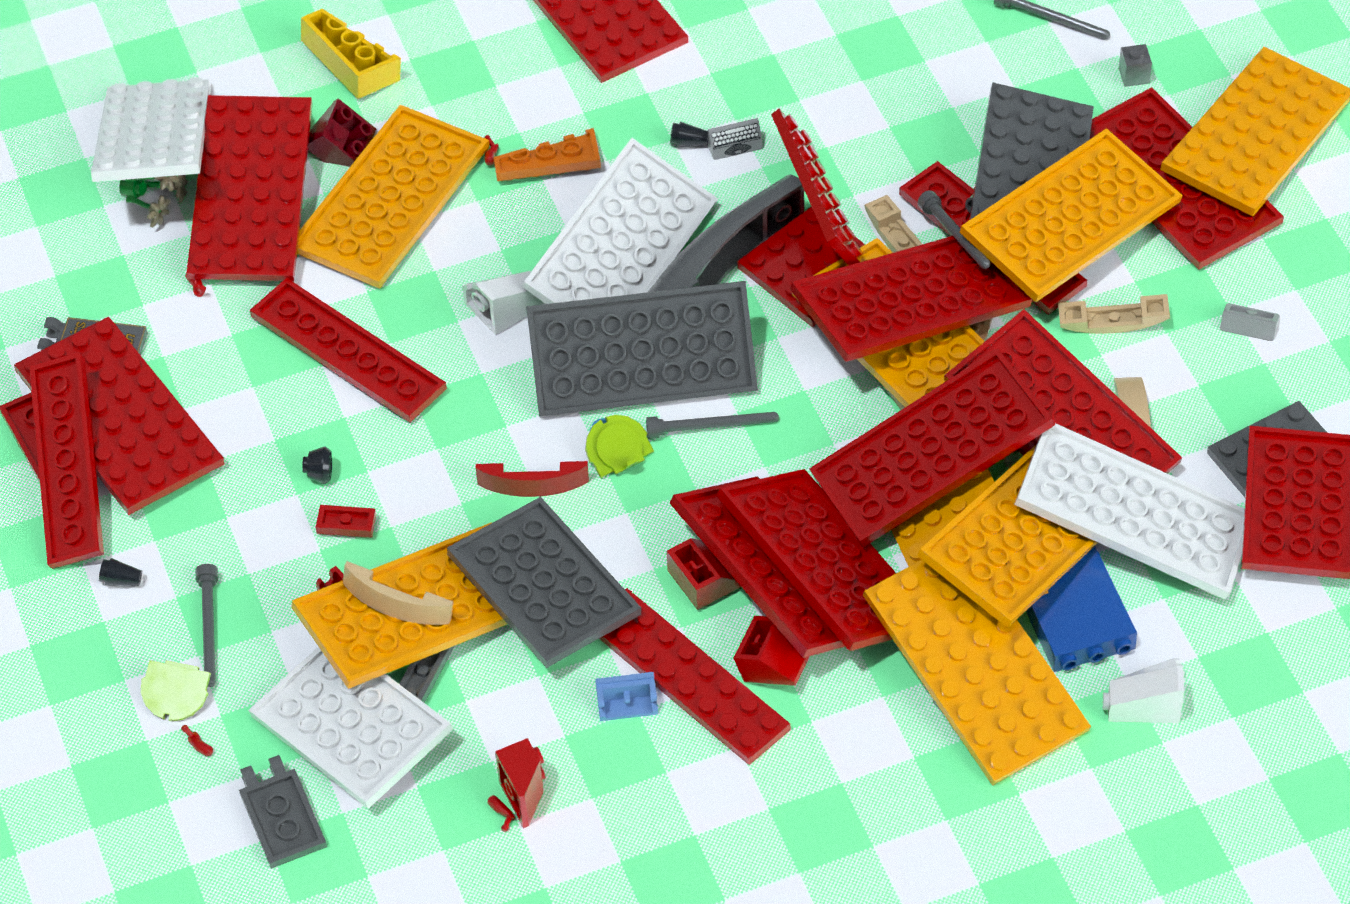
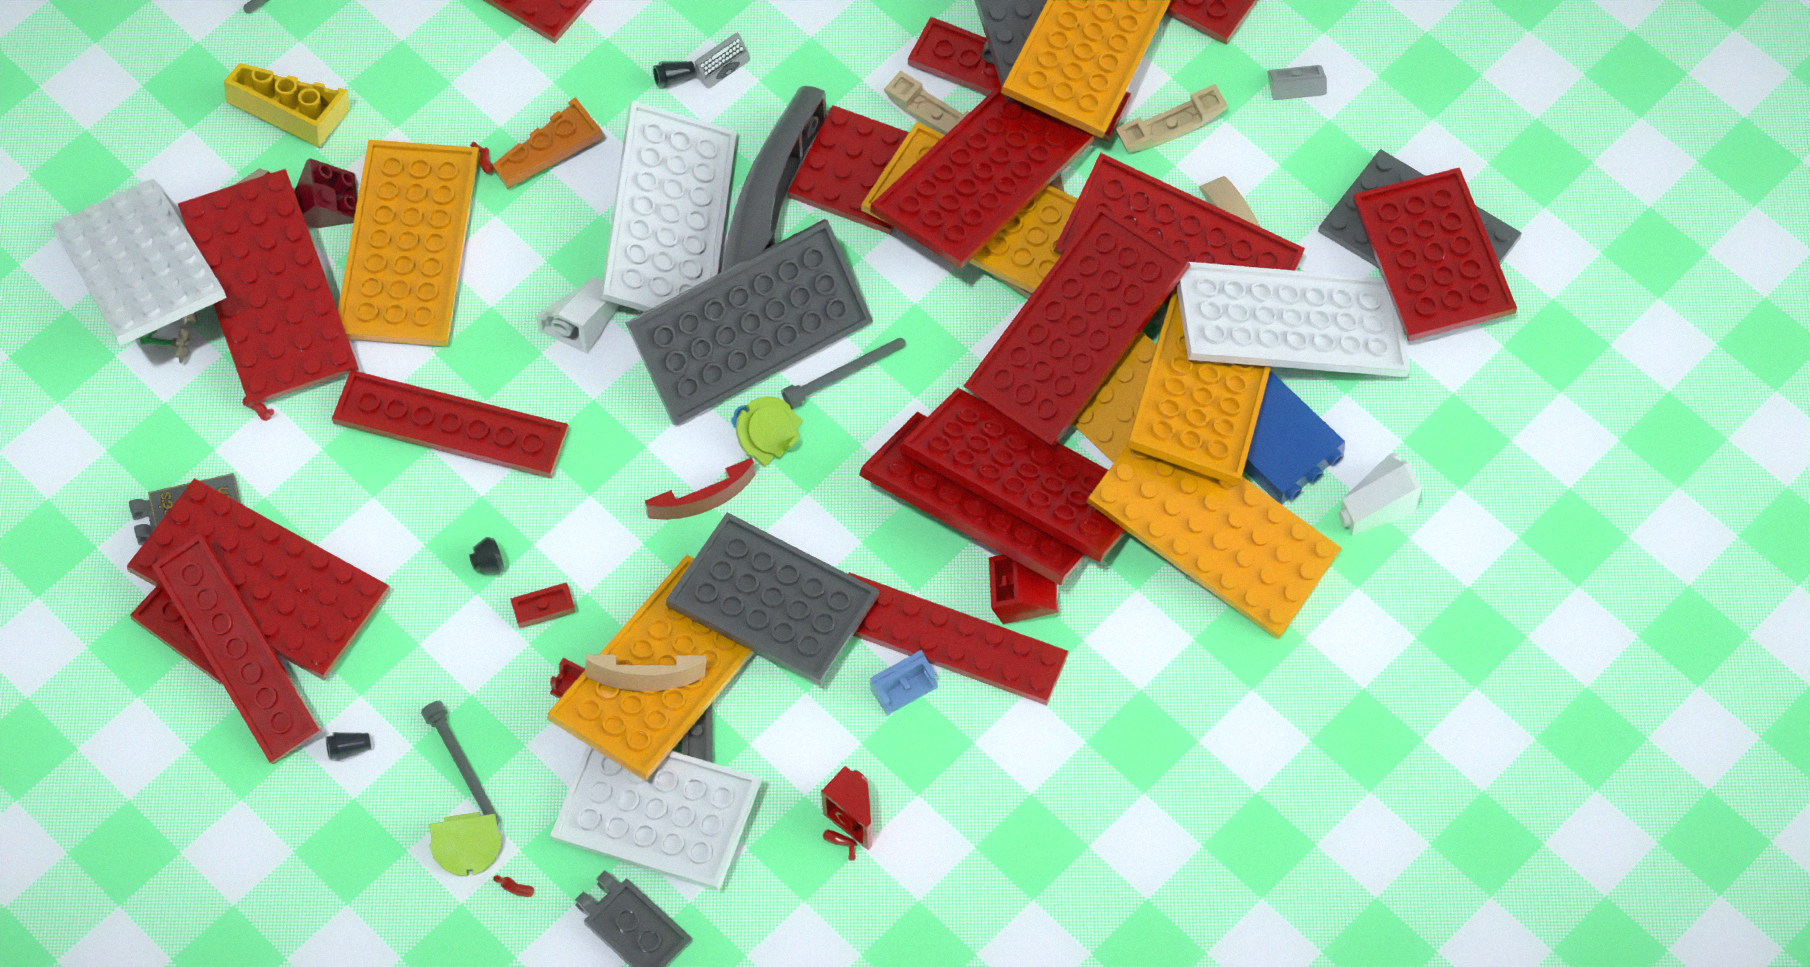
camera: 25 degrees left, 10 degrees up
(699, 573) = (912, 532): red slope -> none
(817, 188) = (838, 91): red plate -> none
(931, 204) = (950, 67): dark grey piece -> none

